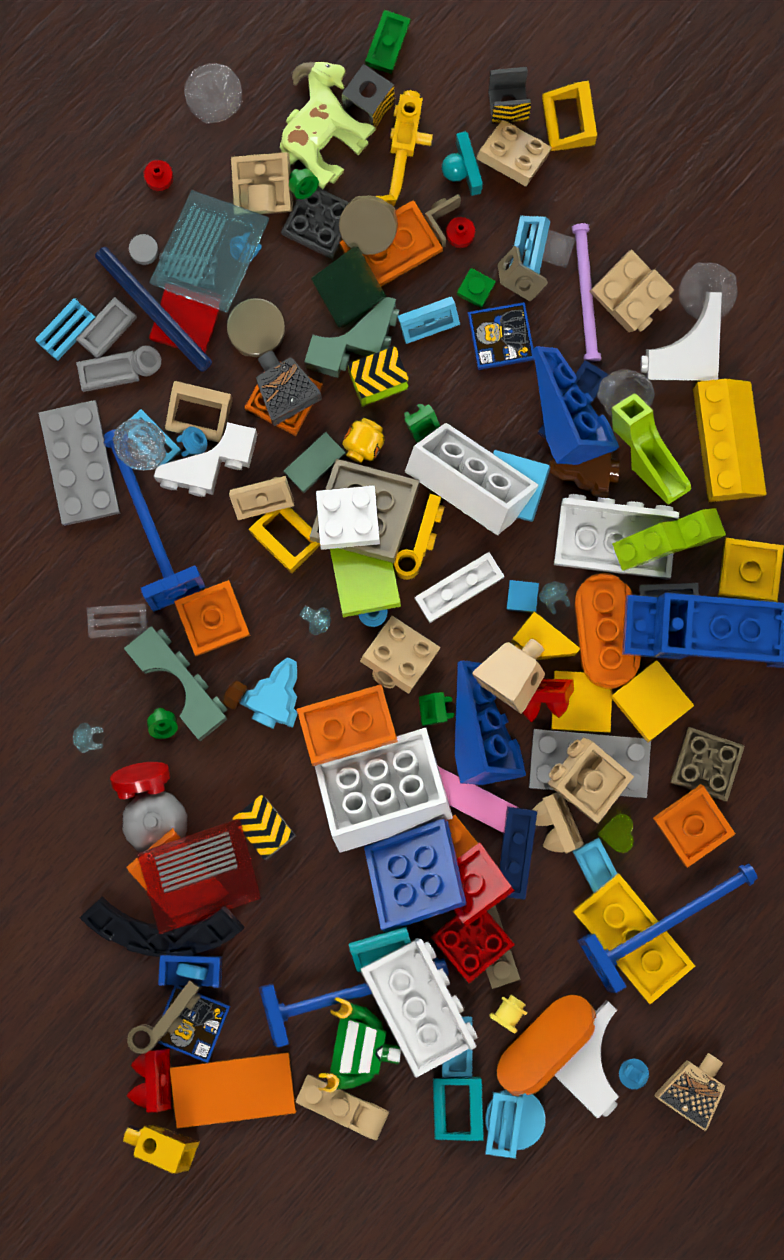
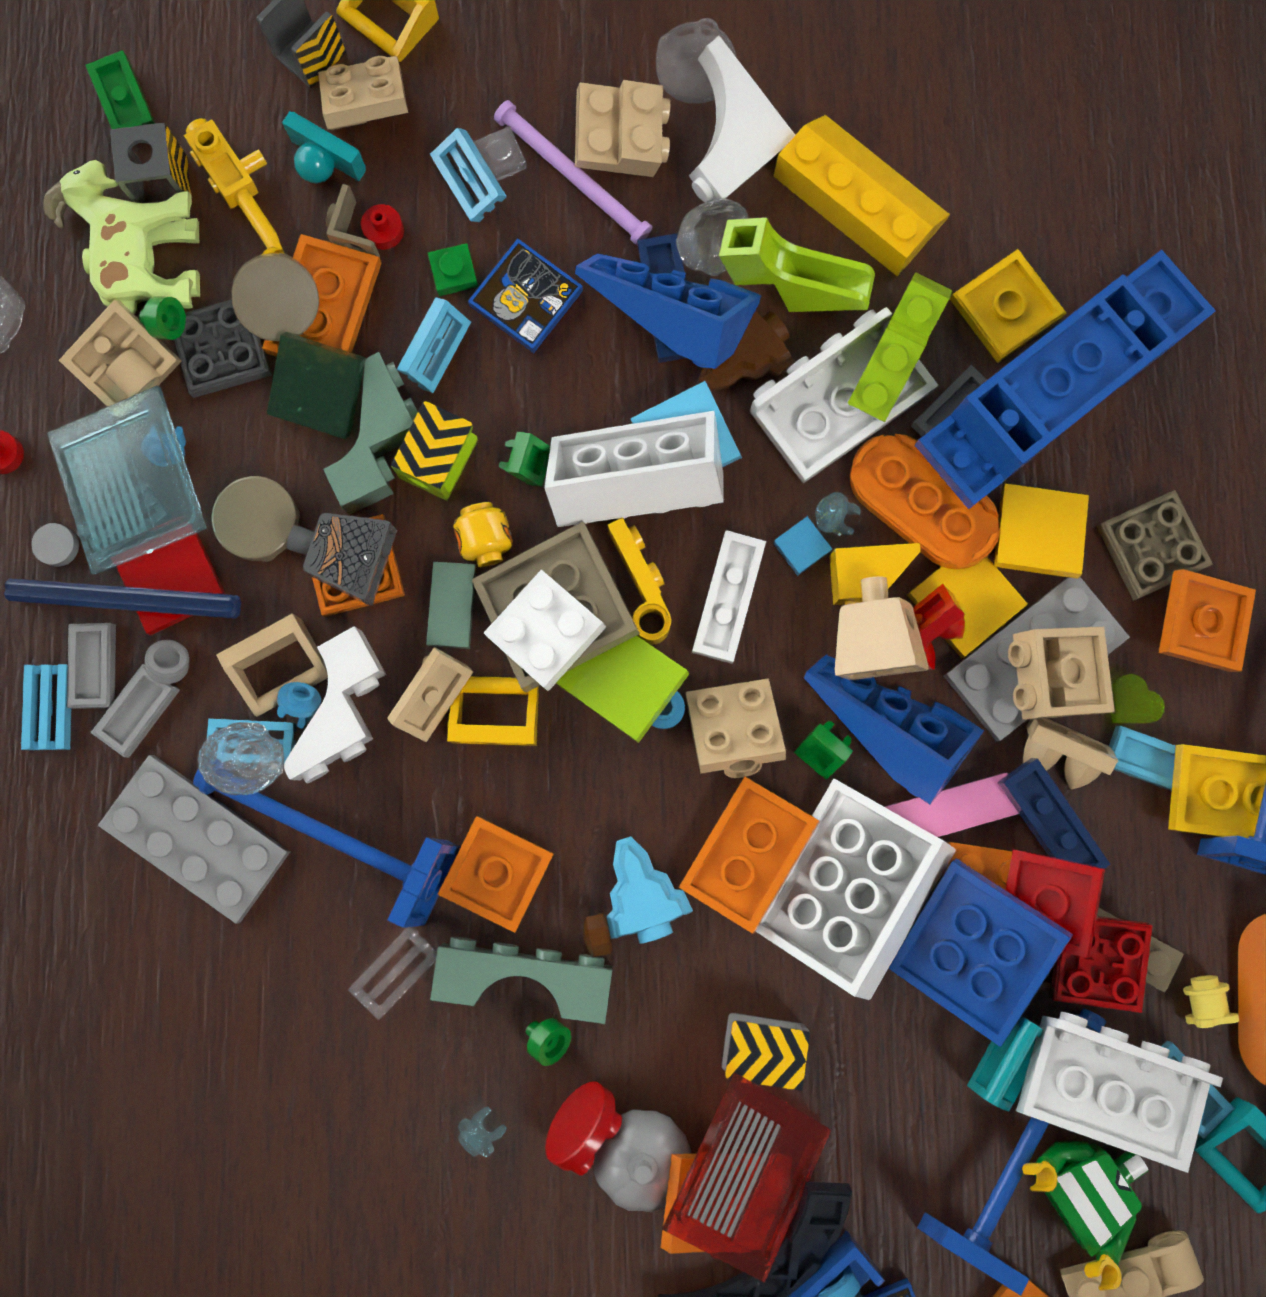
camera: 45 degrees left, 0 degrees up
(318, 620) = (614, 770): clear light blue plate -> none
(519, 277) = (488, 214): dark tan bracket -> none

